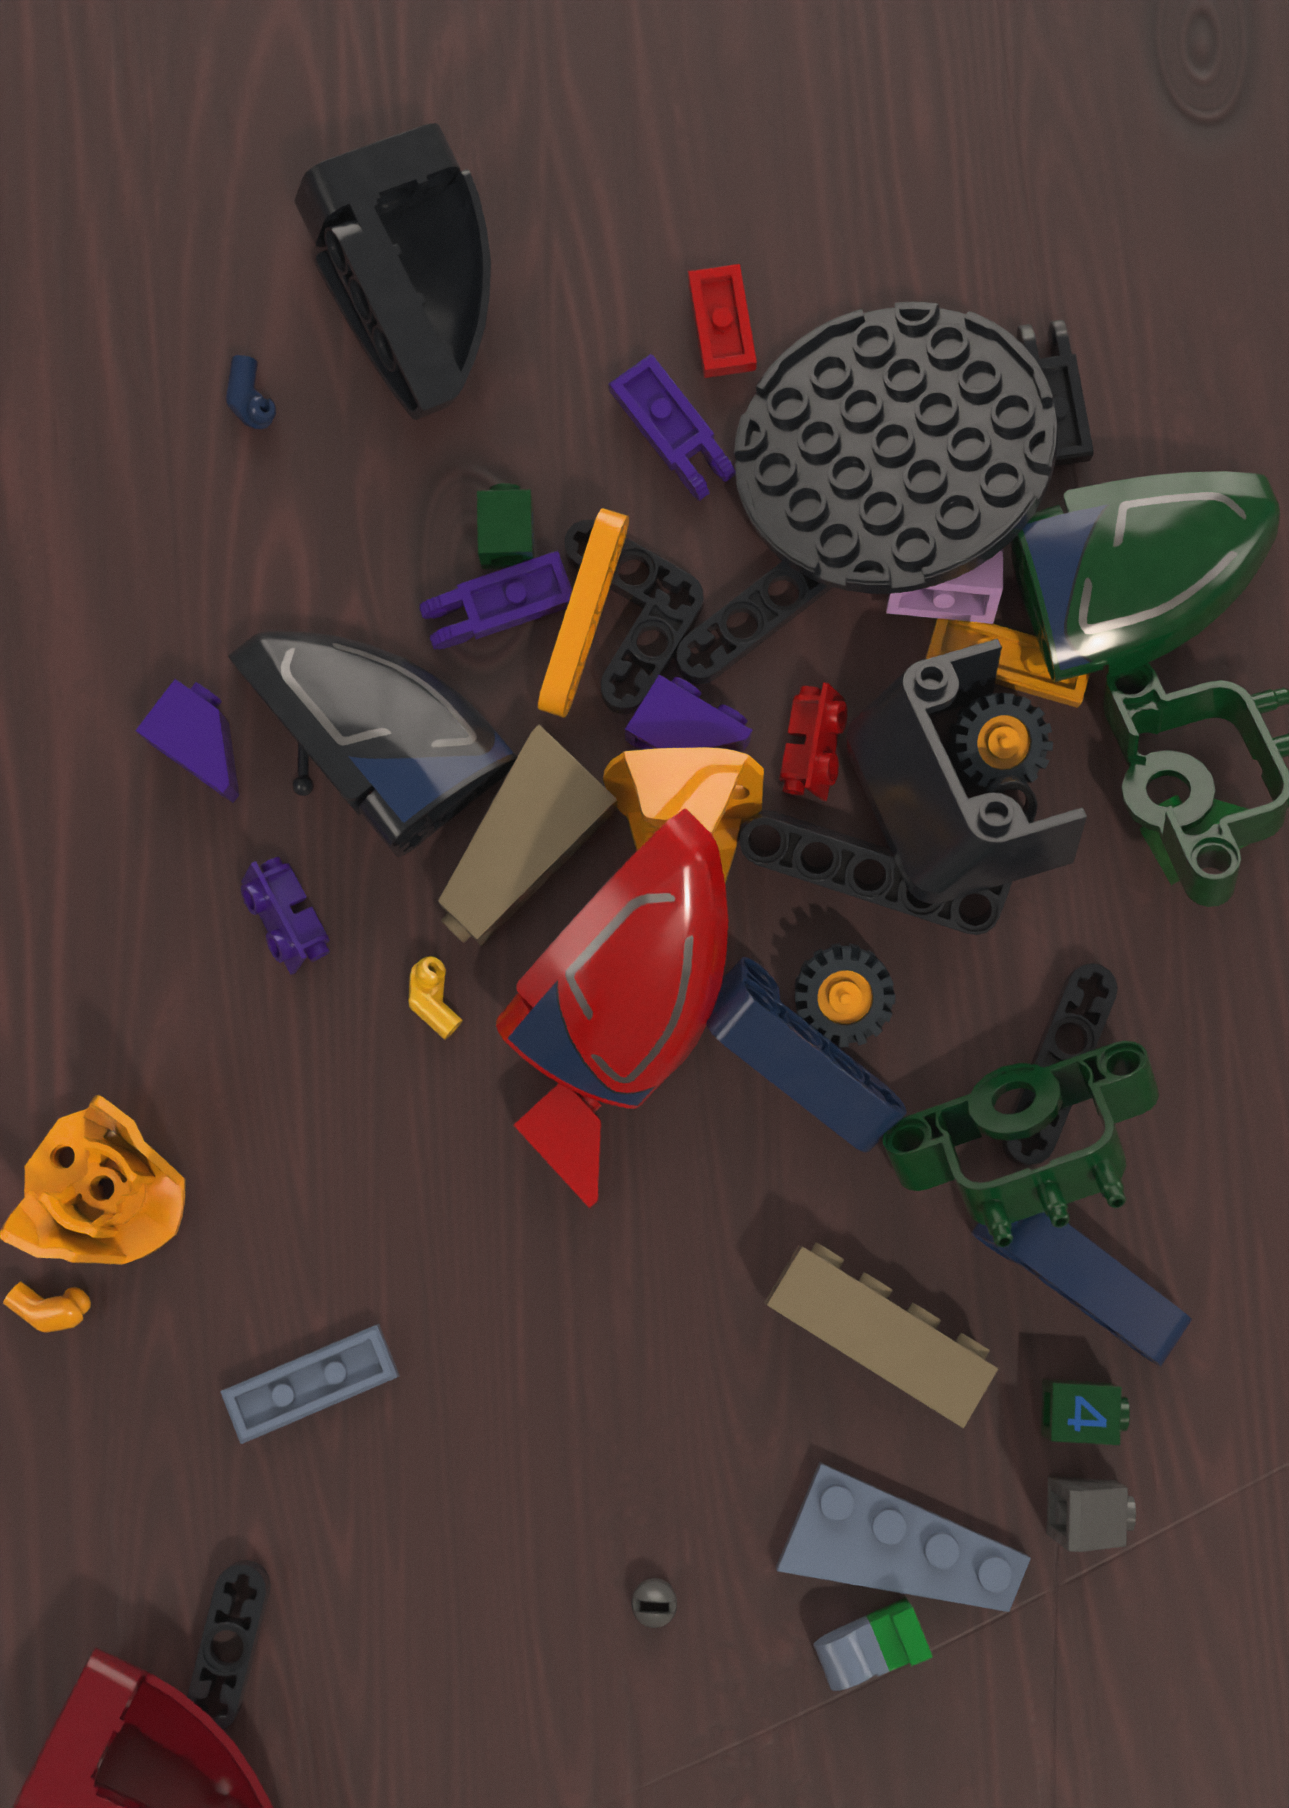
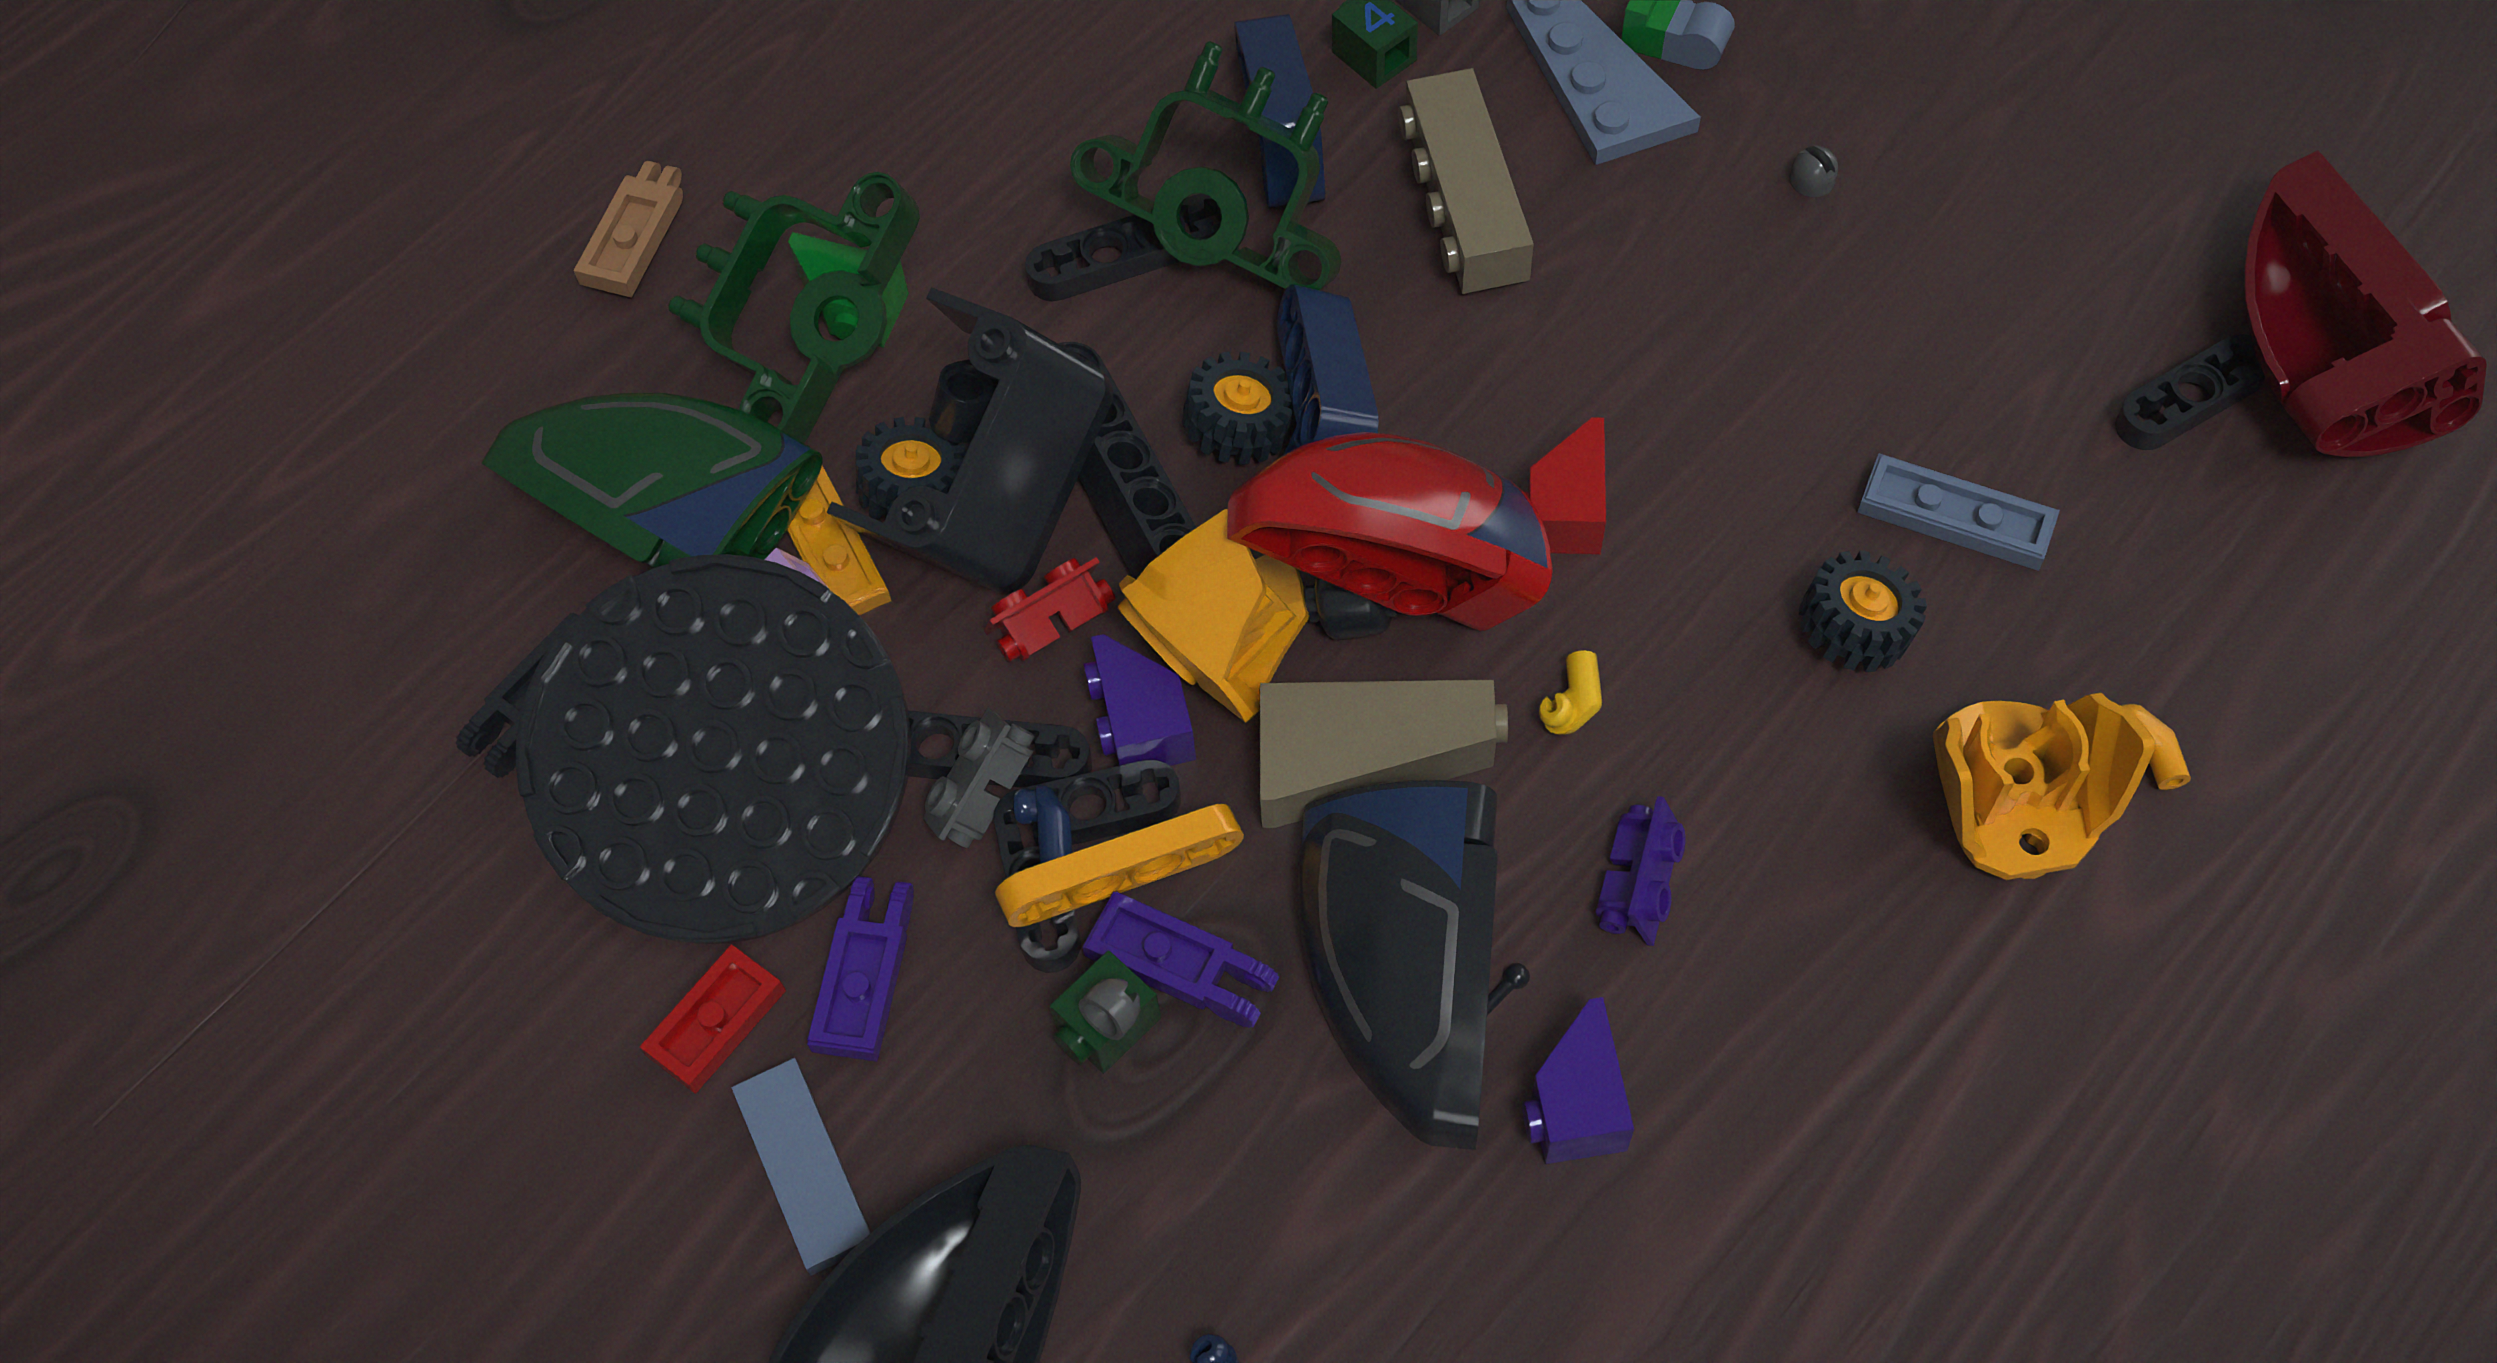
camera: 130 degrees left, 20 degrees down
(299, 1227) = (1862, 611): none -> black wheel
(487, 512) = (1110, 1008): none -> dark grey hinge
(586, 301) = (802, 1165): none -> sand blue tile
(646, 595) = (1051, 817): none -> dark blue arm
(727, 583) = (959, 803): none -> dark grey hinge

